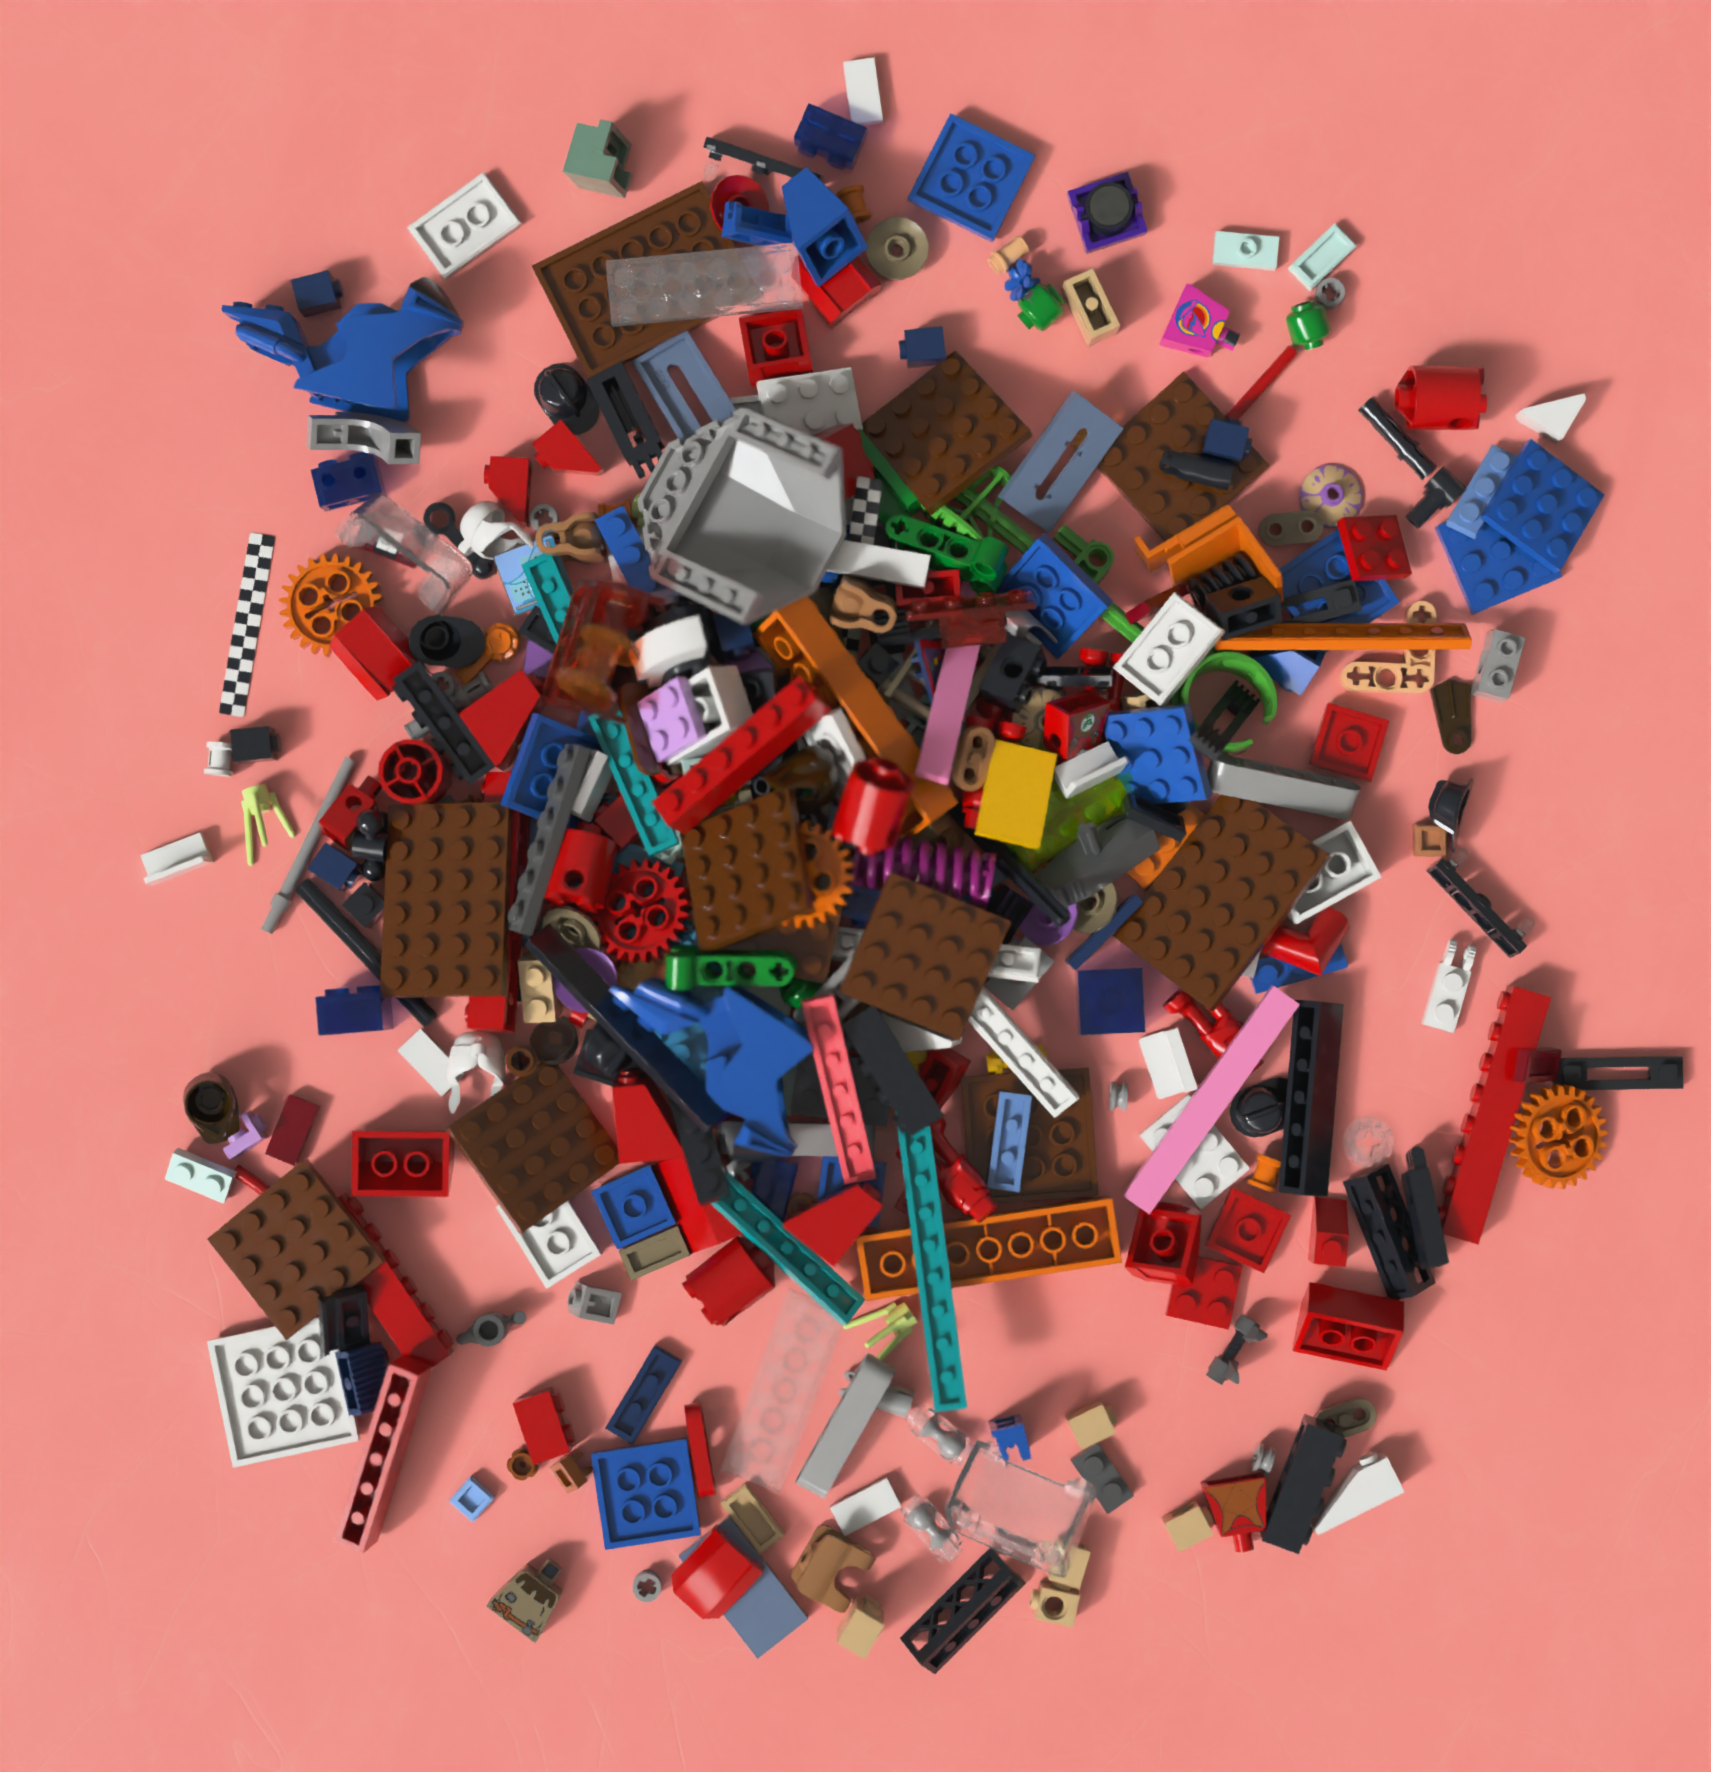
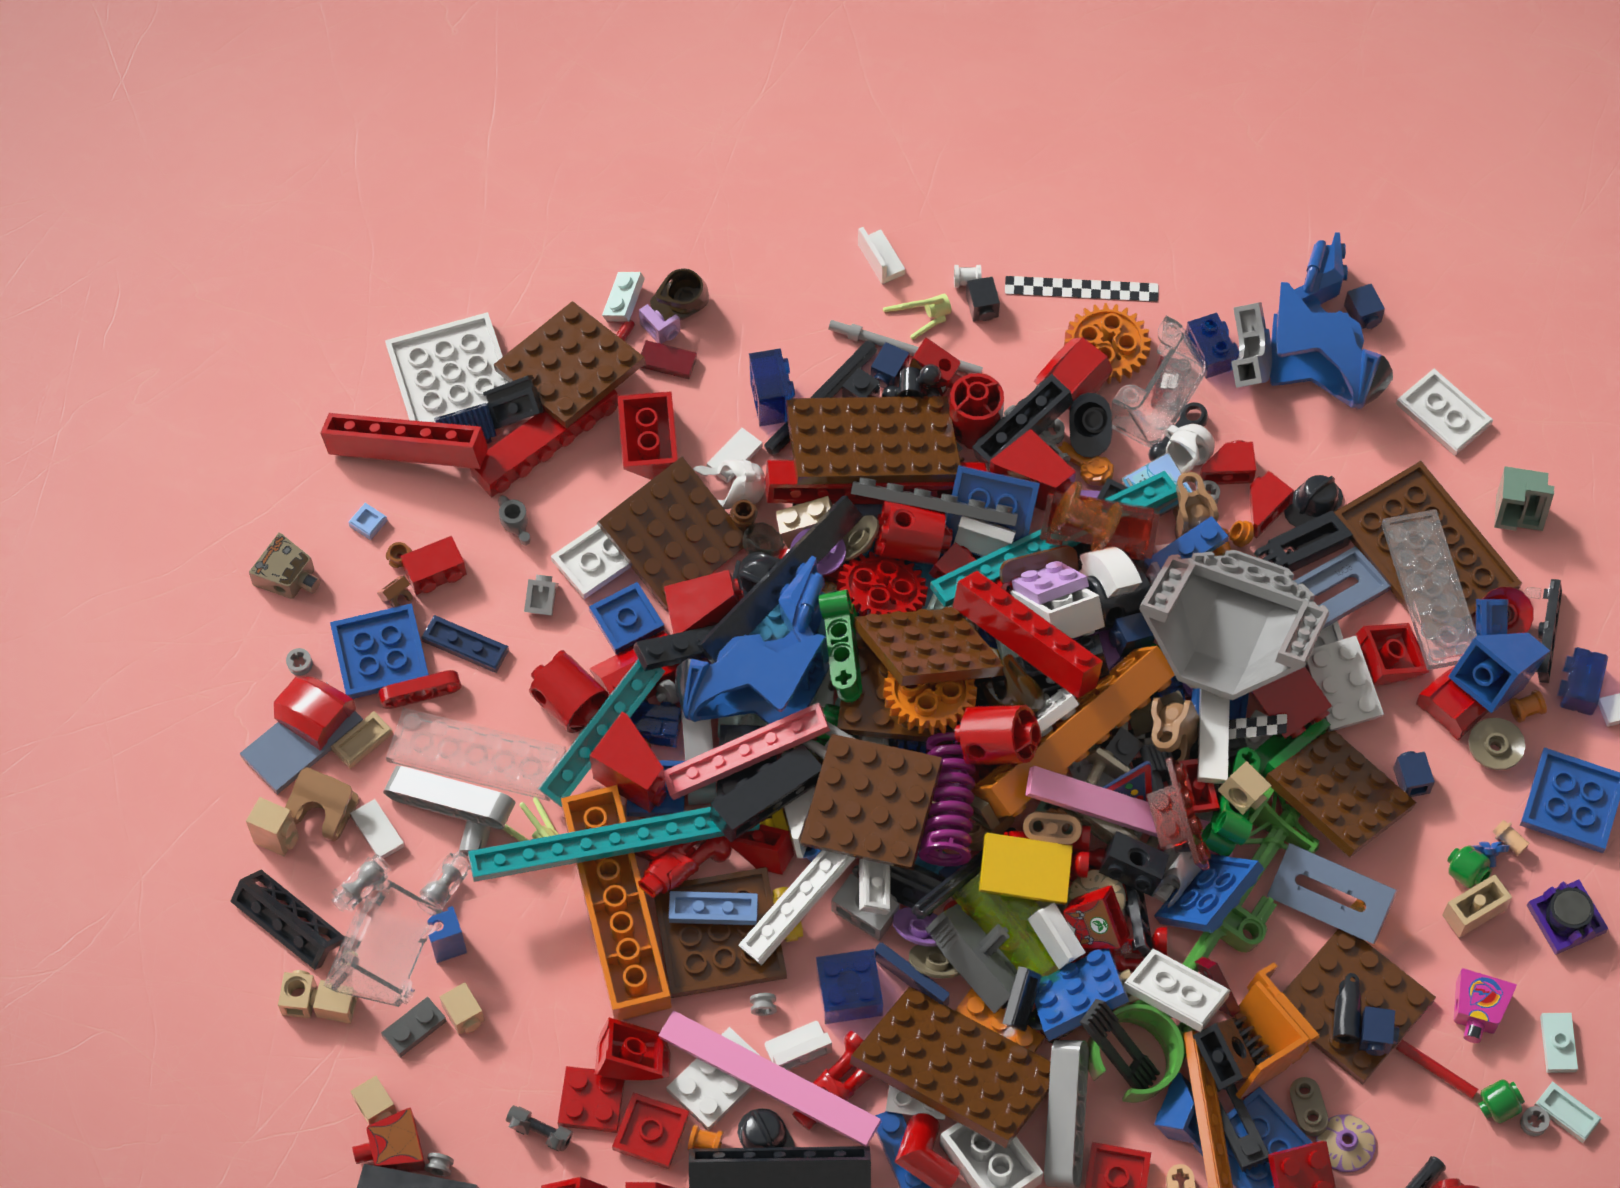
camera: 85 degrees right, 25 degrees down
(602, 488) = (1241, 533): none -> orange plate
(654, 1253) = (587, 639): dark tan tile -> none
(947, 537) = (1245, 788): none -> tan brick

